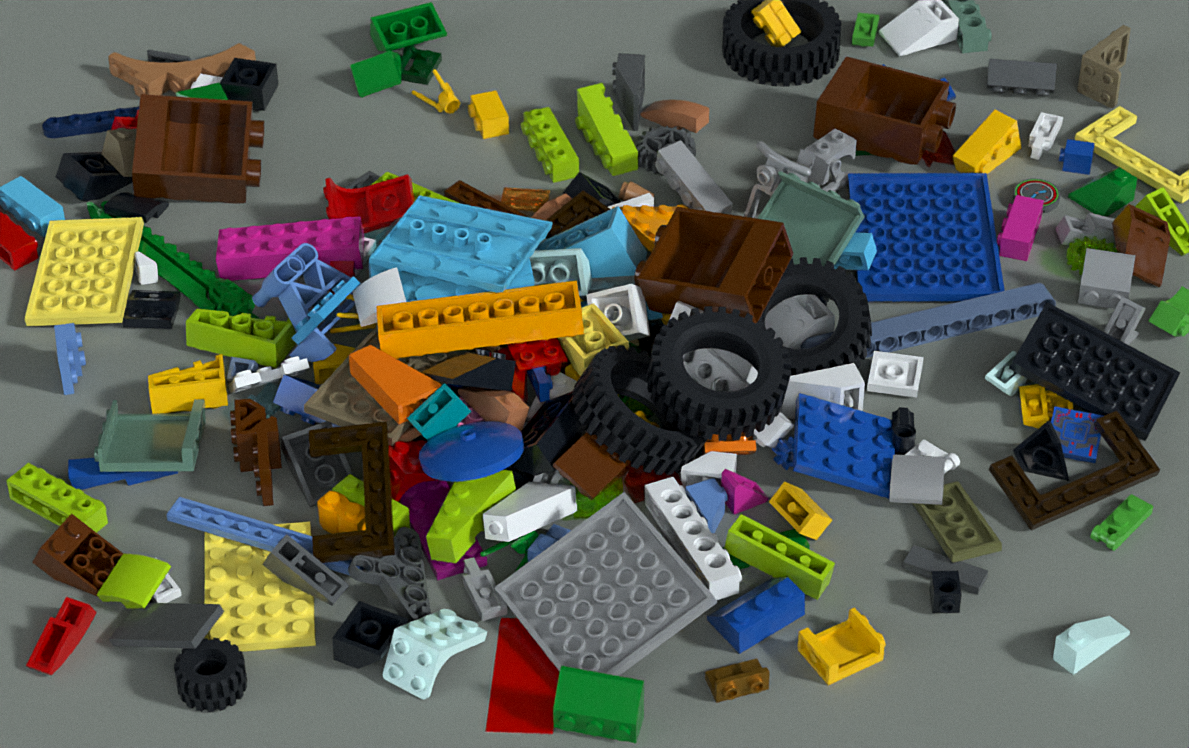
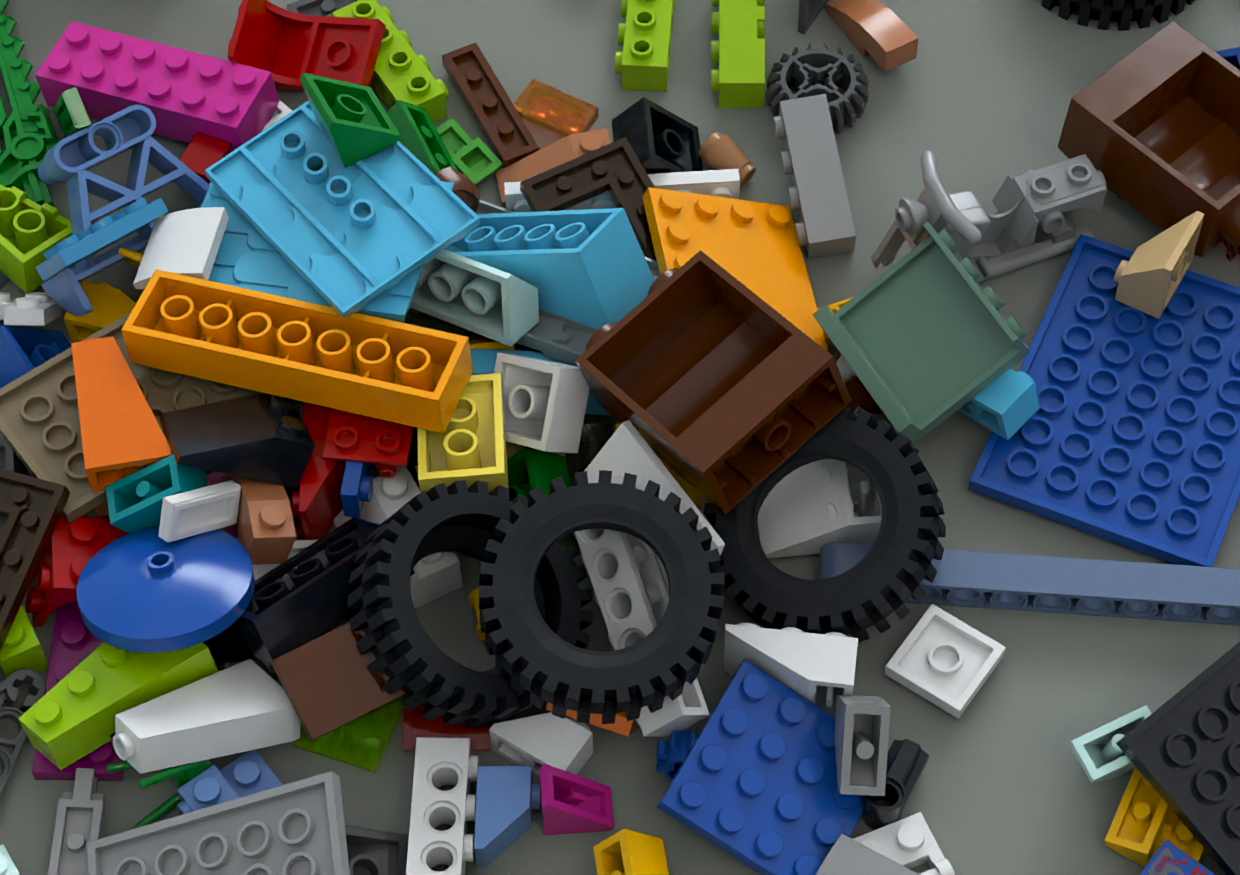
camera: 25 degrees right, 15 degrees up
(260, 265) = (71, 112): none -> green tile
(443, 205) = (349, 117): none -> green slope
(470, 410) = (199, 511): none -> white tile
(881, 408) = (861, 744): none -> light grey slope
(900, 170) = (1158, 267): none -> tan slope

